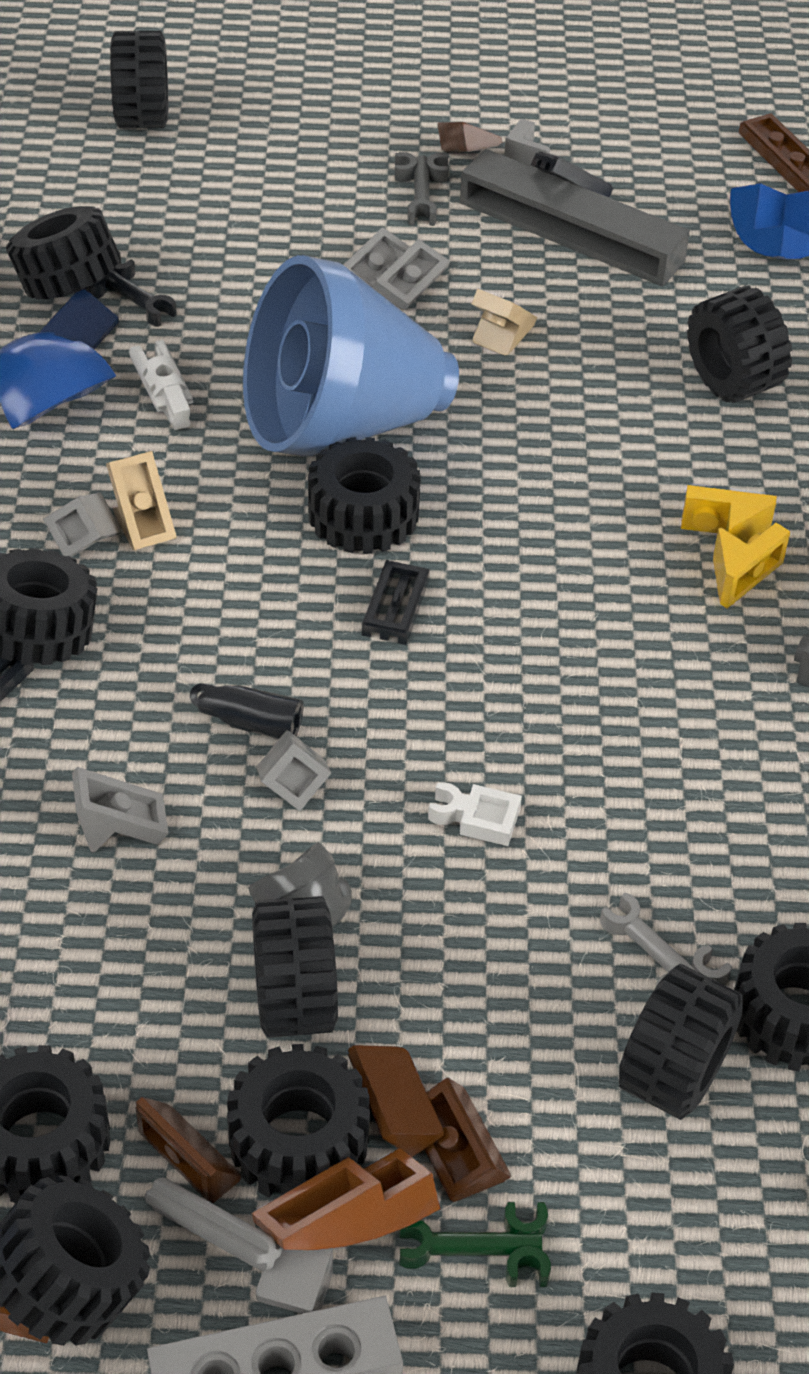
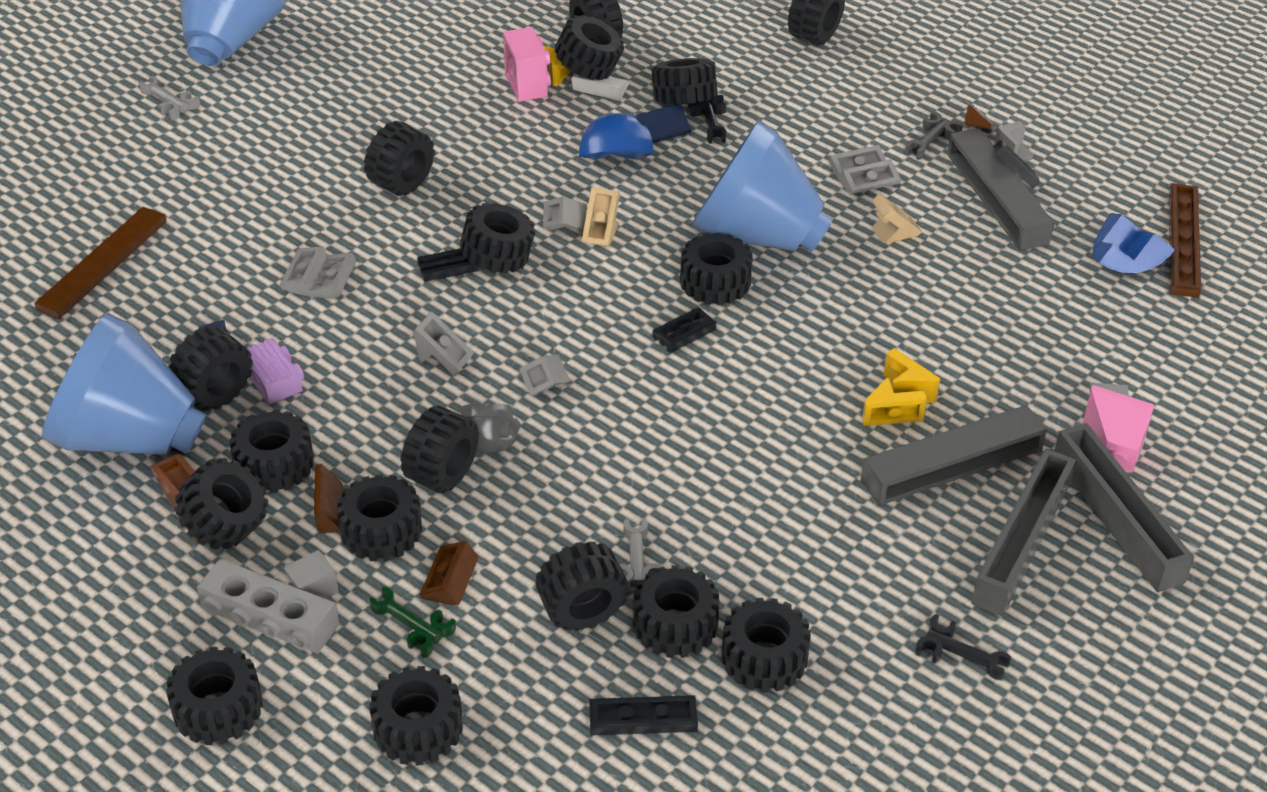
camera: 40 degrees right, 5 degrees down
(164, 383) = (676, 170): white hinge -> none
(213, 1224) = (299, 532): light grey axle -> none
(250, 708) = (554, 338): black piece -> none
(351, 1204) = (361, 560): dark orange slope -> none
(397, 1097) = (434, 534): reddish brown slope -> none
(482, 814) = (614, 445): white plate -> none
(739, 344) = (1007, 292): black tyre -> none

